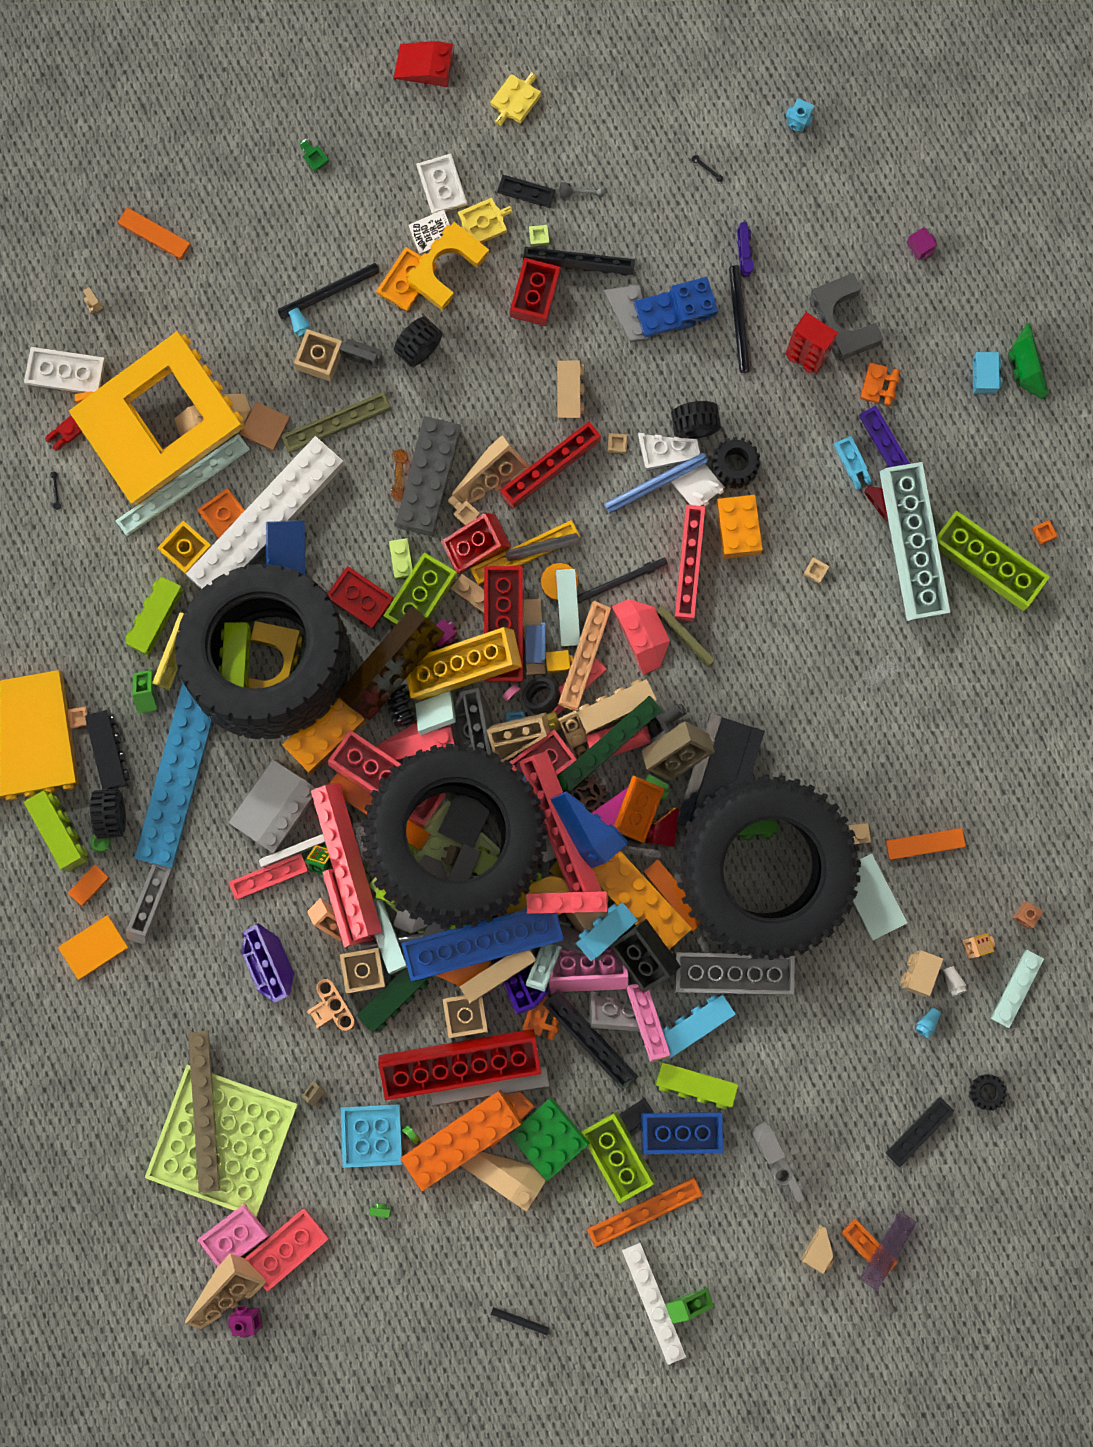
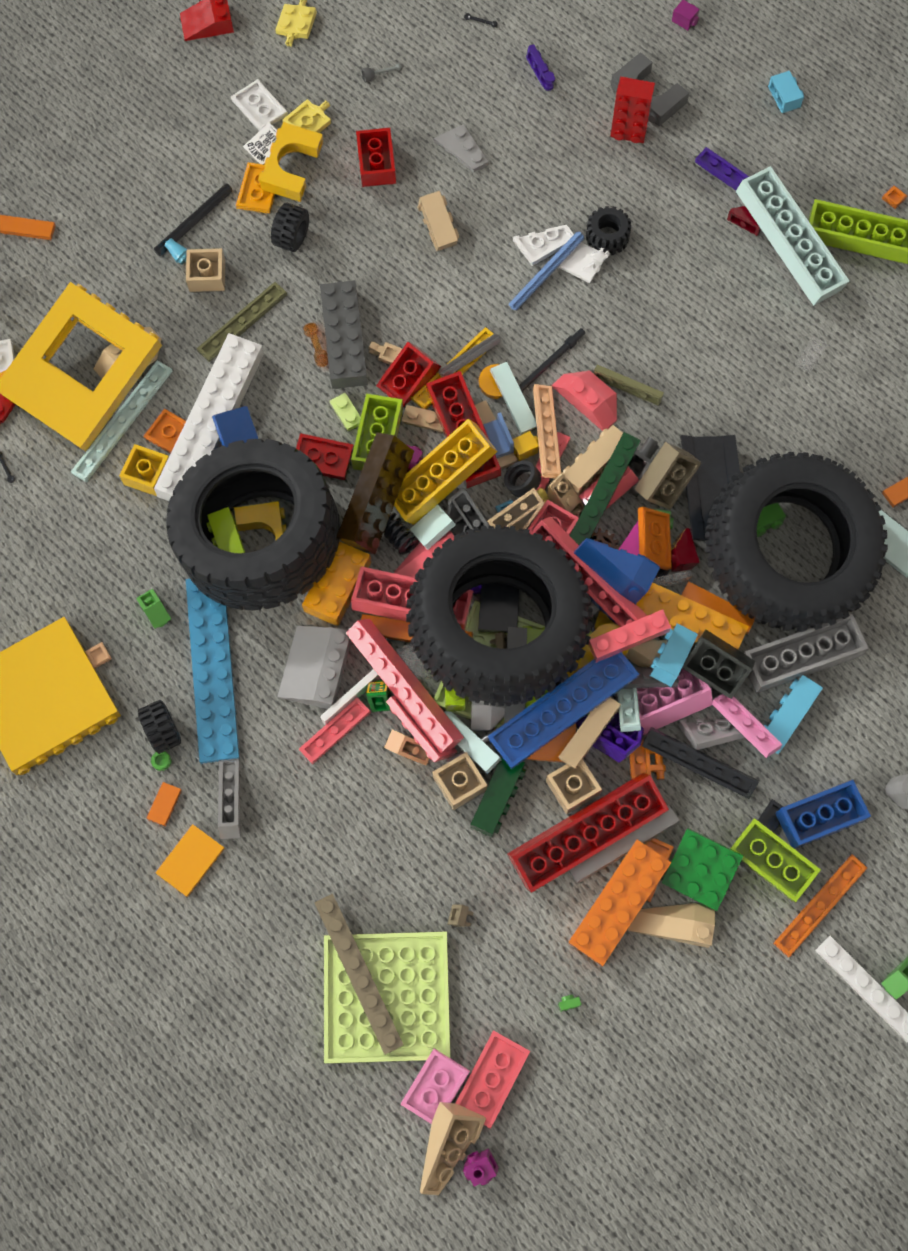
camera: 20 degrees left, 10 degrees down
(56, 830) = (114, 761): lime brick -> none
(106, 750) = (135, 672): black brick -> none
(154, 615) = (137, 539): lime brick -> none
(168, 666) = (167, 569): light yellow tile -> none
(264, 426) = (179, 346): medium nougat tile -> none
(267, 963) = (364, 809): dark purple wedge -> none
(314, 156) = (139, 119): green plate -> none
(325, 1010) = (439, 833): light nougat beam -> none
(360, 353) = (241, 257): dark grey bracket -> none
(371, 1136) = (530, 934): medium azure plate -> none
(411, 1135) = (568, 918): bright green tile -> none
(494, 467) = (400, 306): tan wedge -> none
(511, 693) = (493, 487): bright pink tile -> none
(520, 1321) = (748, 1058): black bar -> none
(526, 191) = (334, 87): black tile -> none
(539, 235) = (360, 115): yellowish green plate -> none
(550, 465) = (448, 287): red brick -> none
(583, 261) = (411, 121): black plate -> none
(617, 443) = (498, 253): tan tile -> none
(677, 308) = (504, 127): blue piece -> none
(689, 563) = (605, 323): coral brick -> none
(696, 419) = (559, 205): black tyre -> none
(697, 1085) = (814, 767): lime brick -> none
(739, 320) = (559, 122): black axle -> none
(739, 526) = (634, 280): light orange brick -> none
(816, 570) = (716, 292): tan plate -> none
(852, 461) = (707, 197): medium azure hinge -> none
(874, 383) = (695, 131): orange plate -> none
(1027, 364) = (818, 72): green wedge -> none

